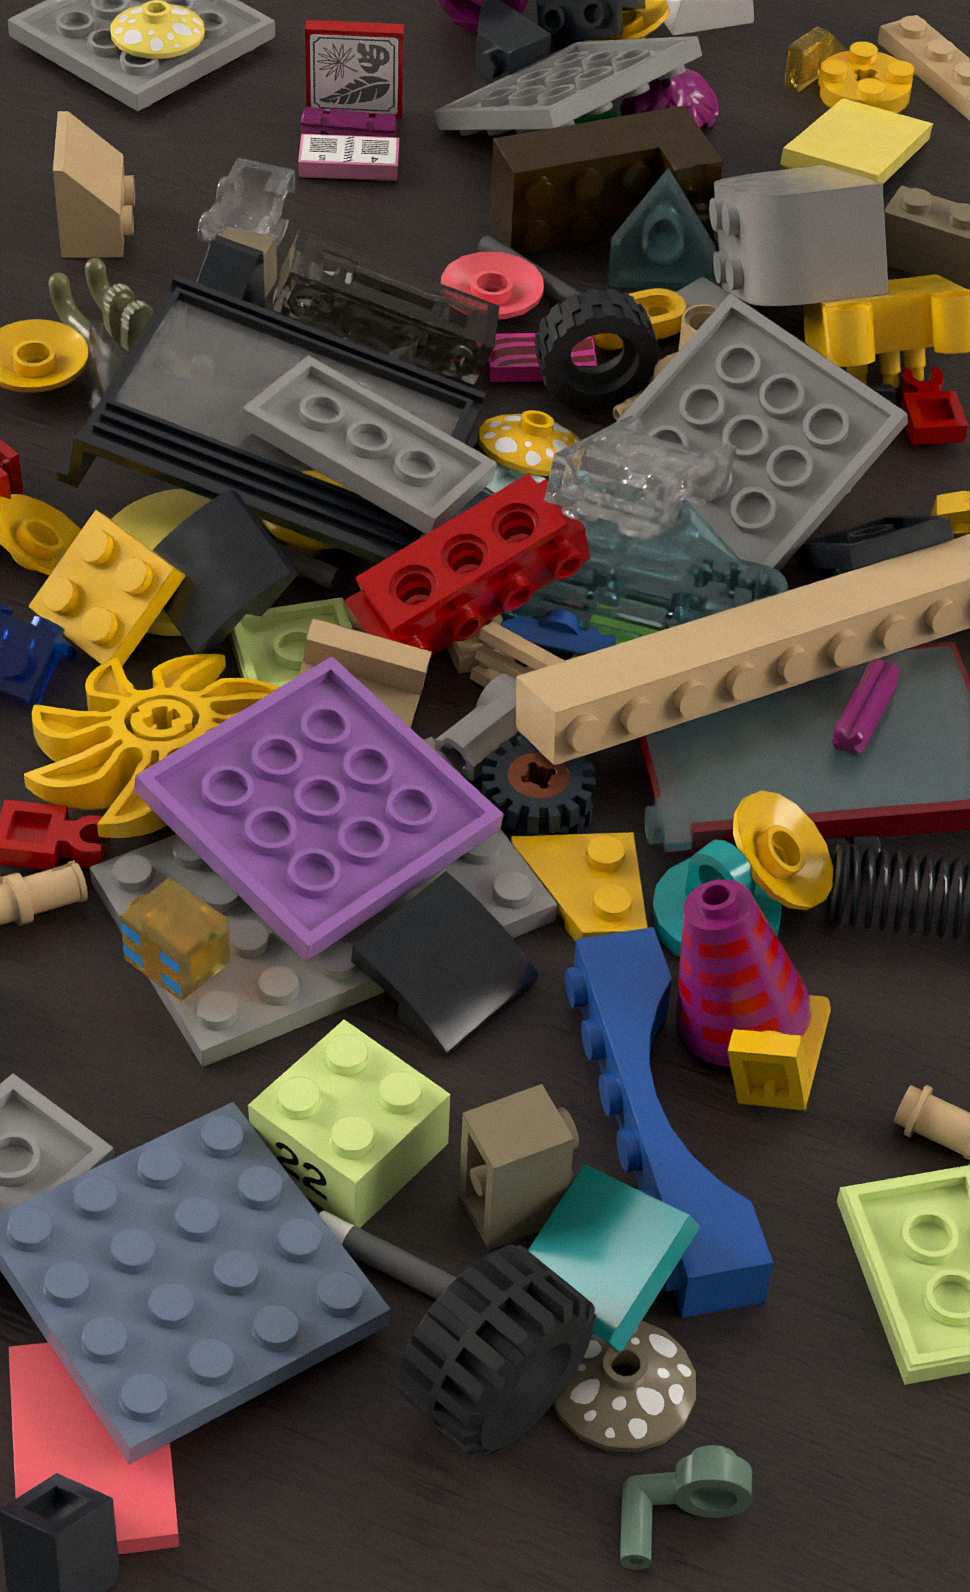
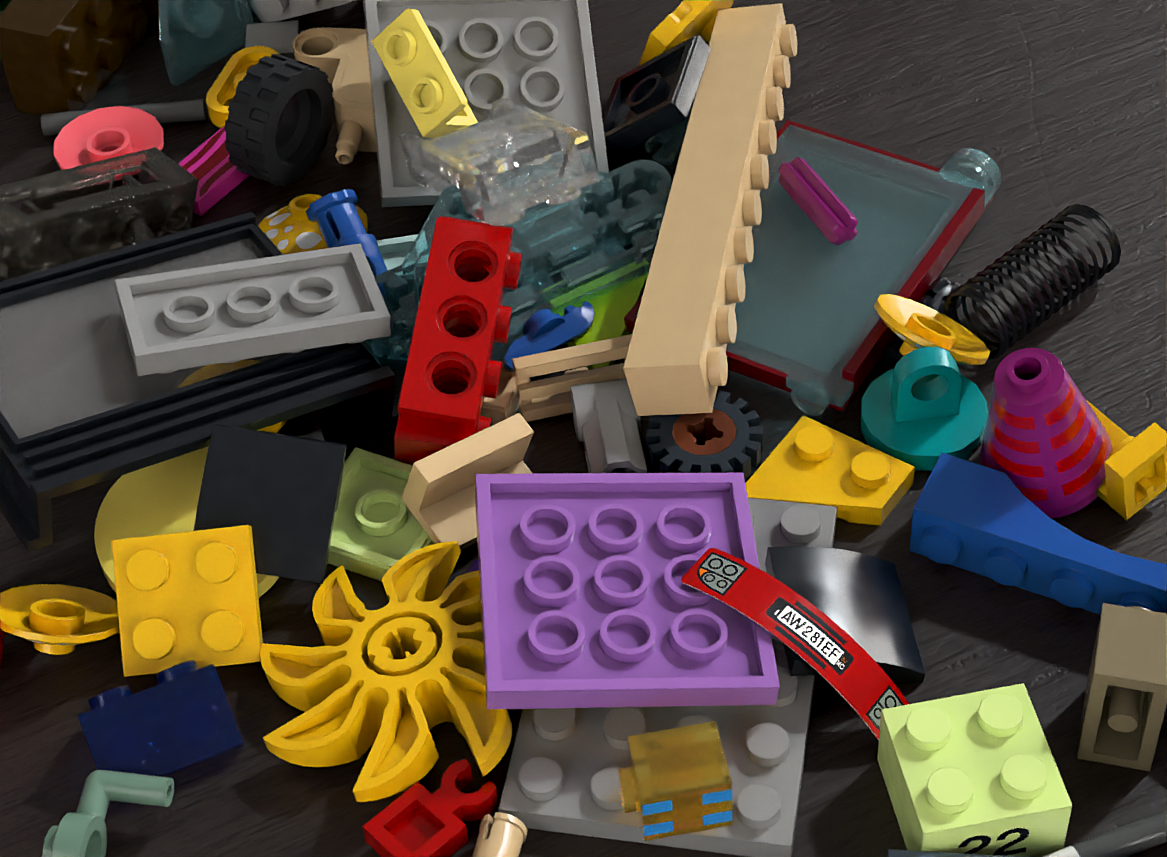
camera: 45 degrees left, 0 degrees up
(379, 938) = (801, 628): none -> sticker
(522, 451) = (342, 226): none -> blue connector
(687, 386) = (422, 76): none -> light yellow bracket

